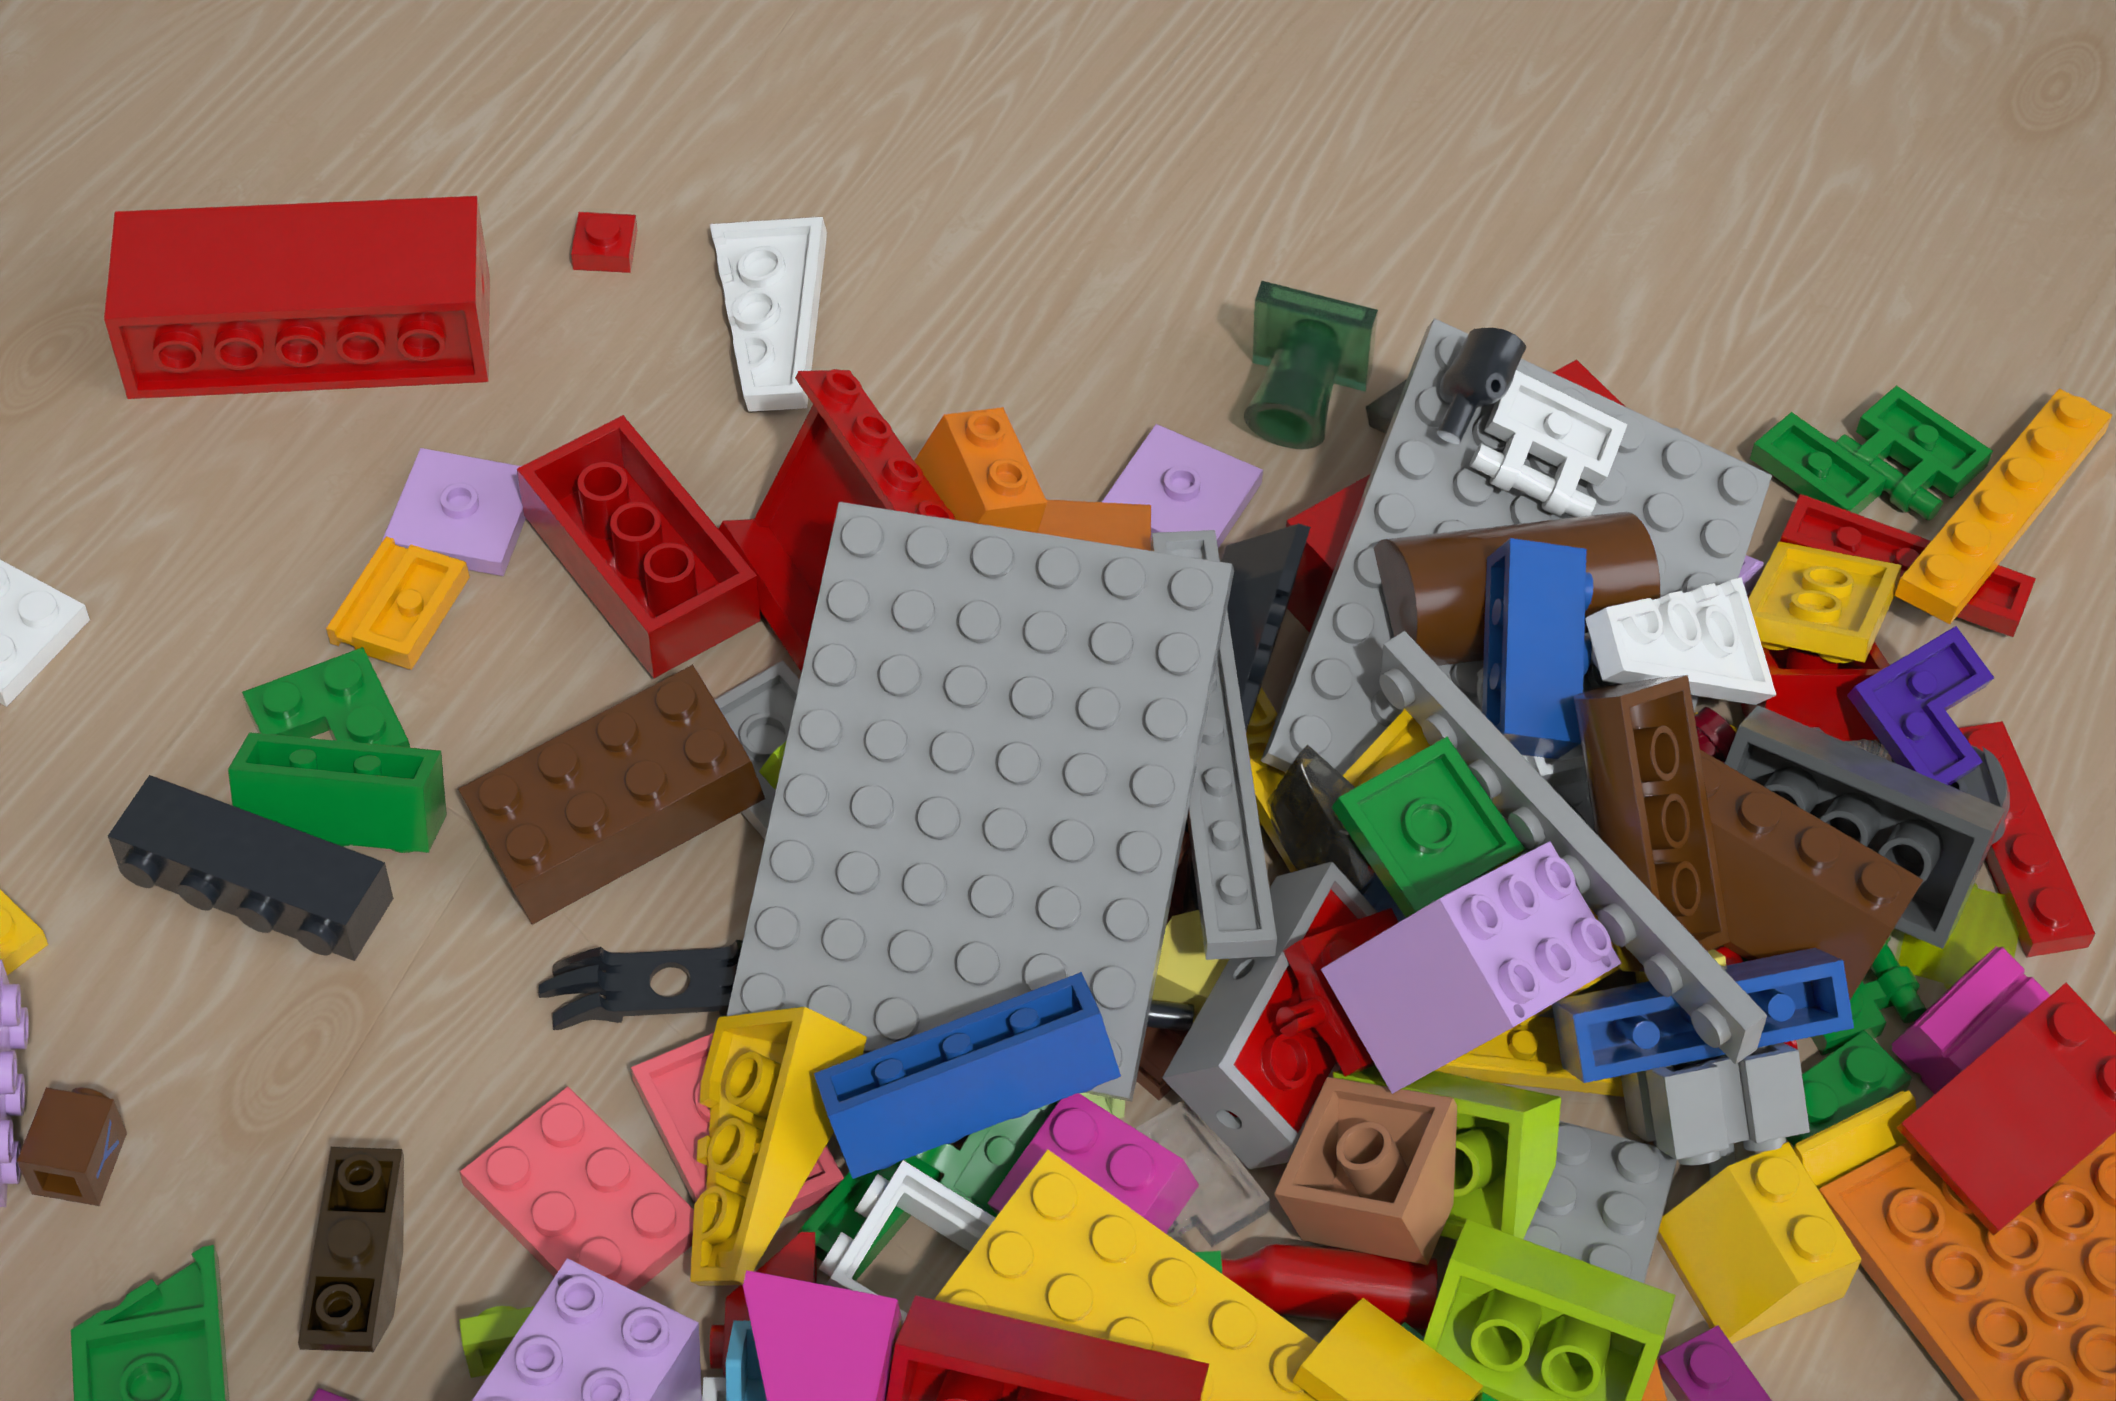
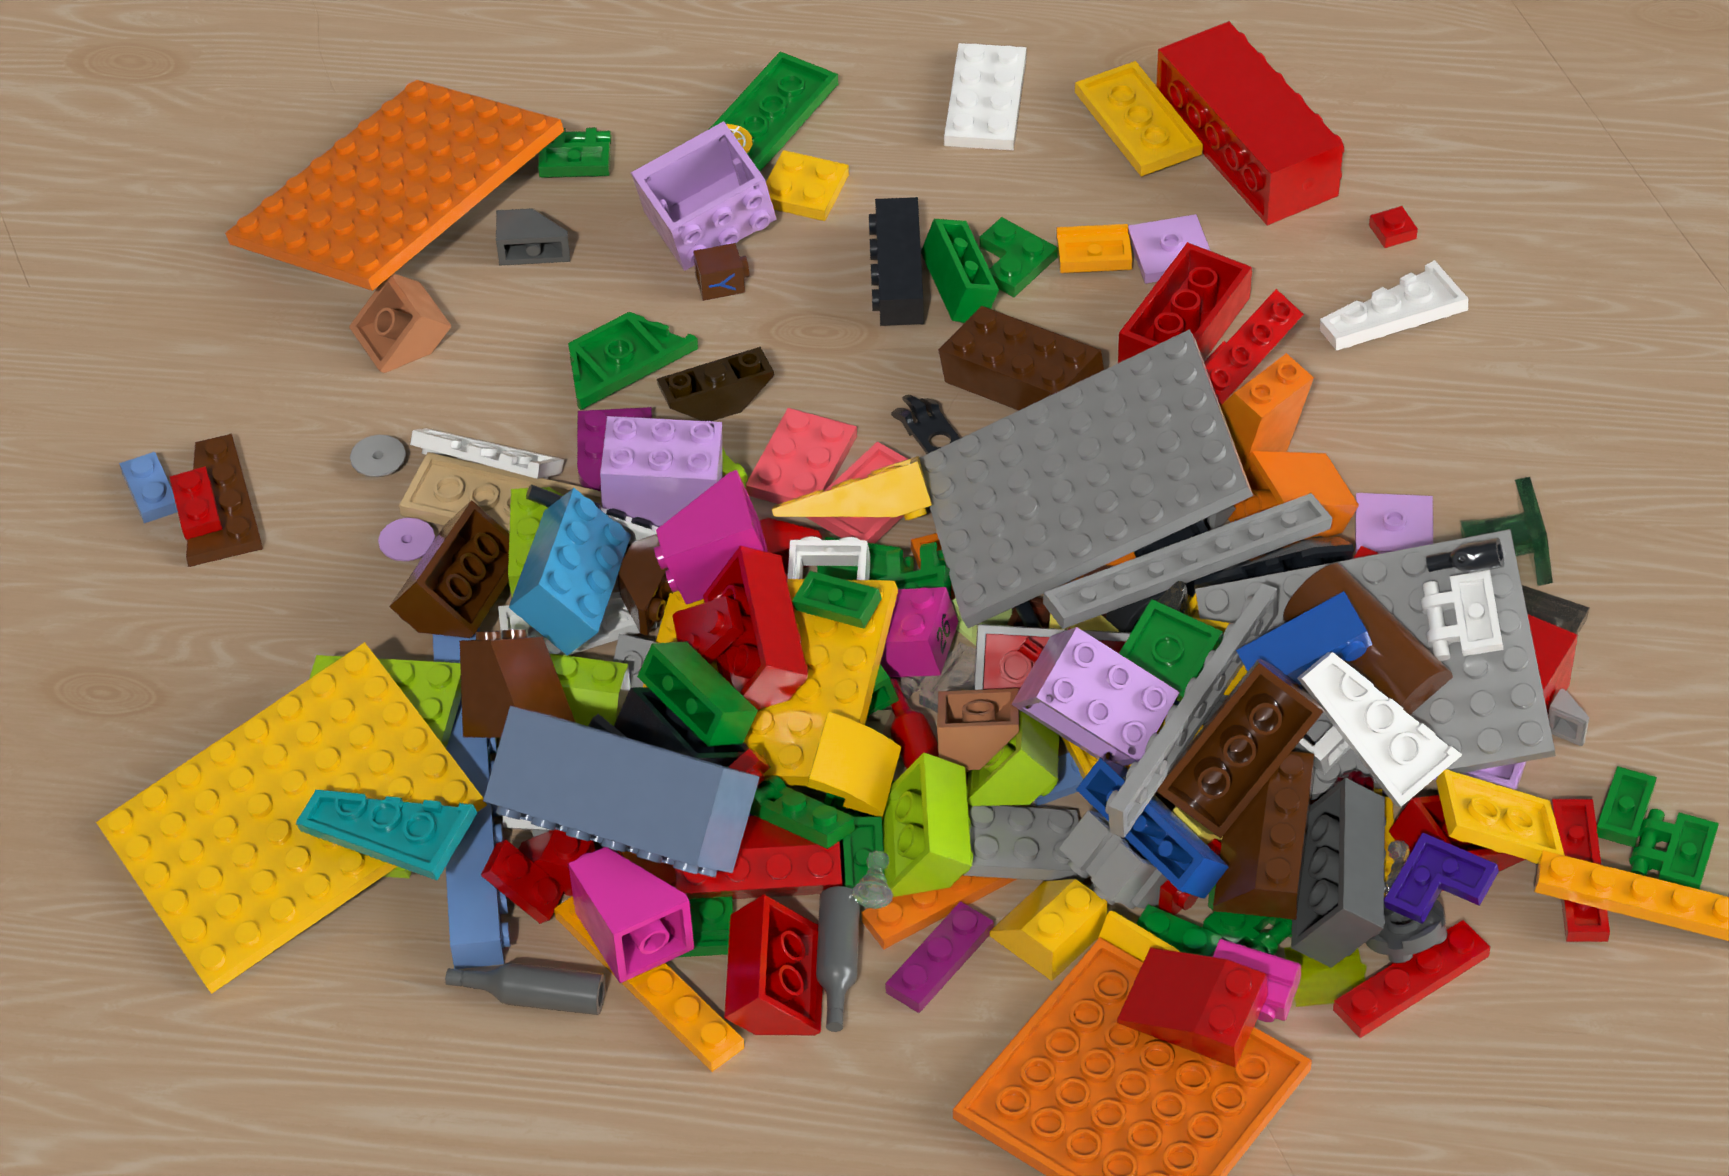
camera: 70 degrees right, 5 degrees down
(162, 430) = (1138, 118): none -> yellow plate
(967, 1075) = (919, 537): blue brick -> none
(1058, 1249) = (837, 599): none -> green plate

